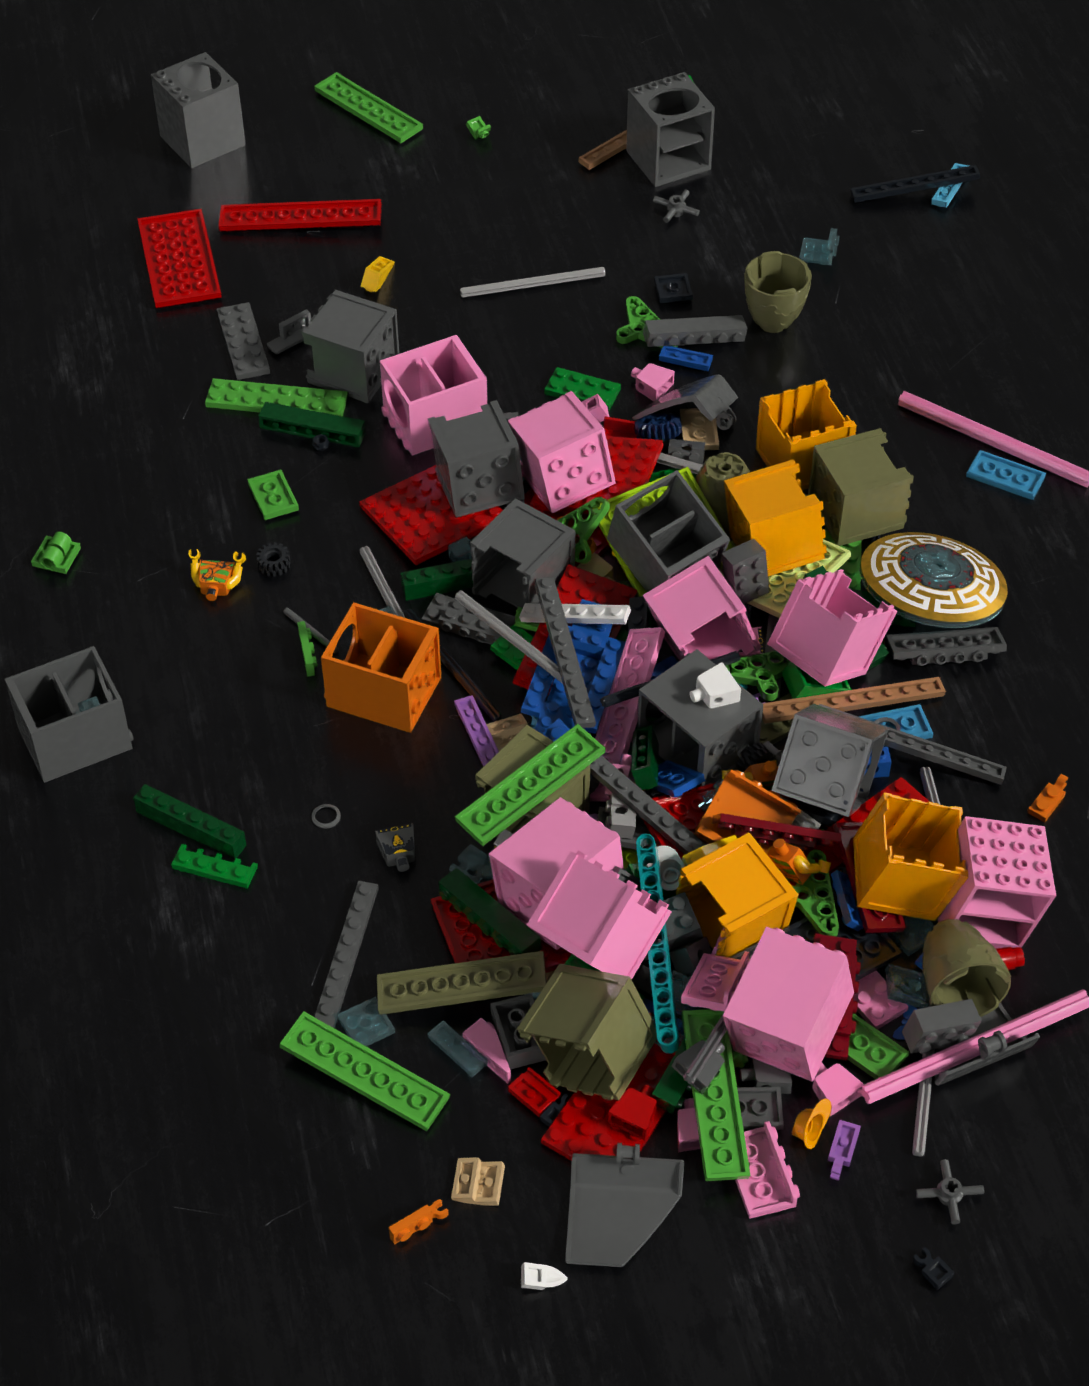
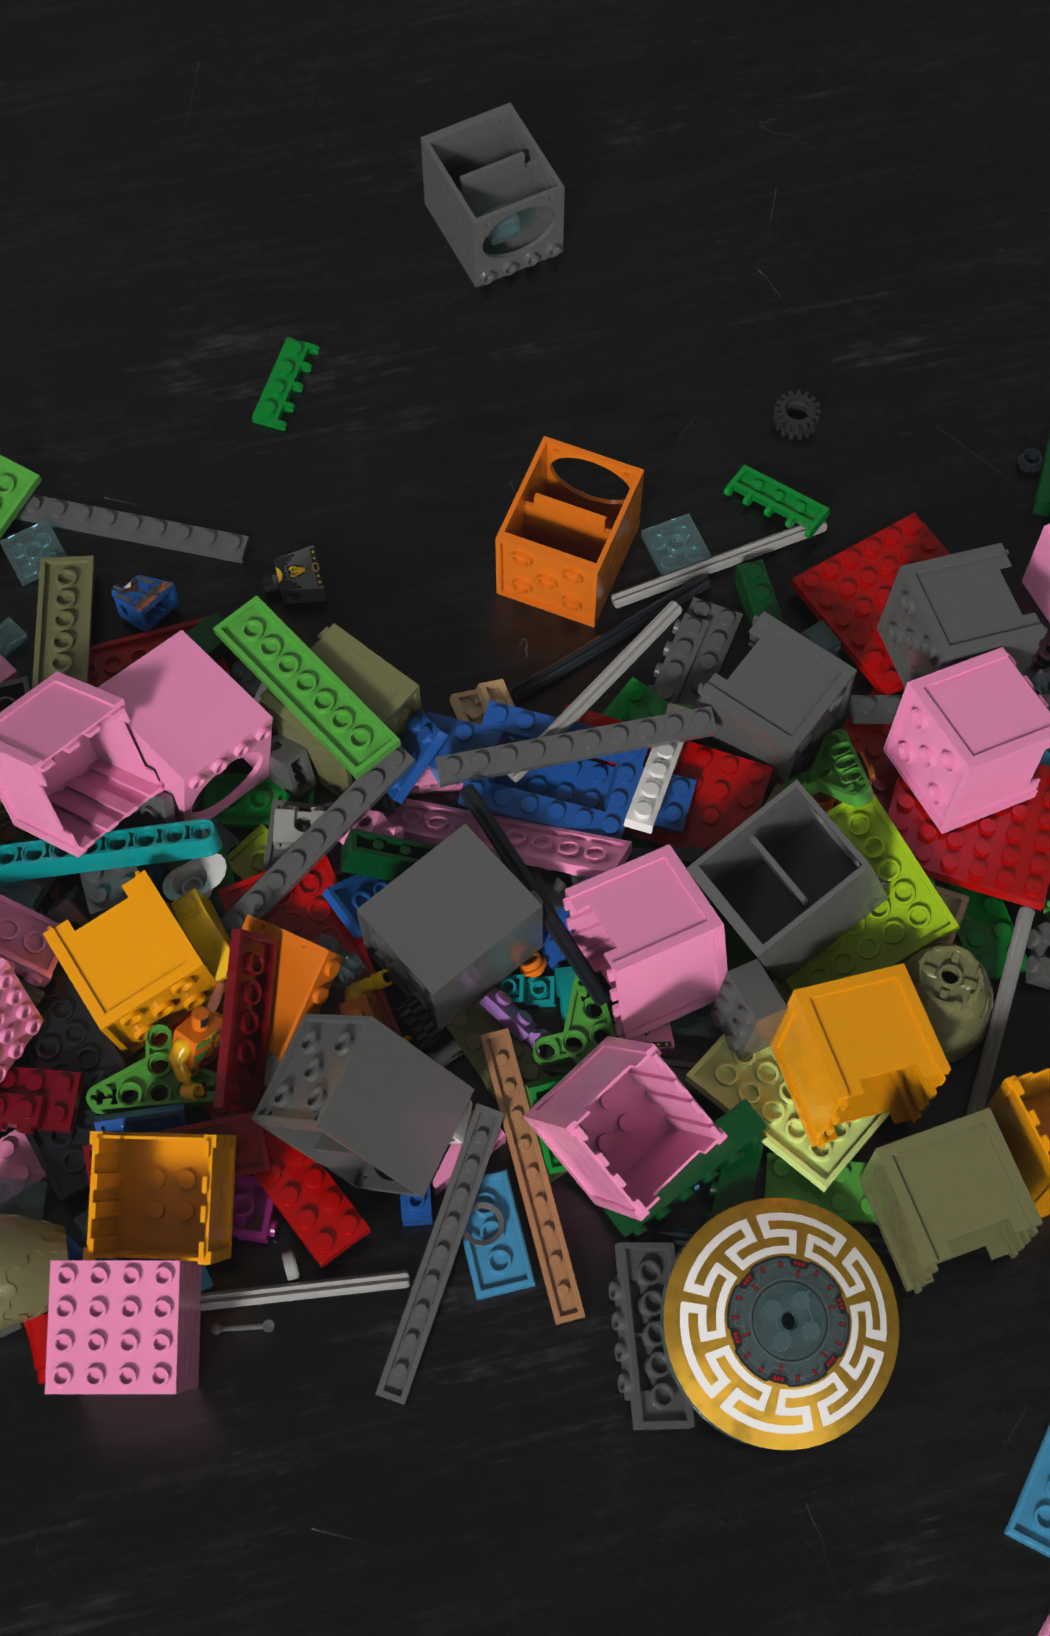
camera: 90 degrees right, 15 degrees up
(56, 553) = (793, 174): bright green plate -> none
(190, 821) = (346, 349): dark green brick -> none
(216, 576) = (759, 346): torso -> none
(273, 494) = (920, 407): bright green plate -> none
(307, 648) = (642, 457): bright green plate -> none
(314, 633) = (674, 465): dark grey bar -> none
(328, 825) = (370, 510): dark grey piece -> none
(347, 567) = (778, 499): none -> green hinge
(418, 940) = (145, 601): none -> blue torso
(476, 728) = (491, 667): medium lavender plate -> none
(716, 687) = (455, 922): white torso -> none
(1048, 799) = (343, 1466): orange plate -> none

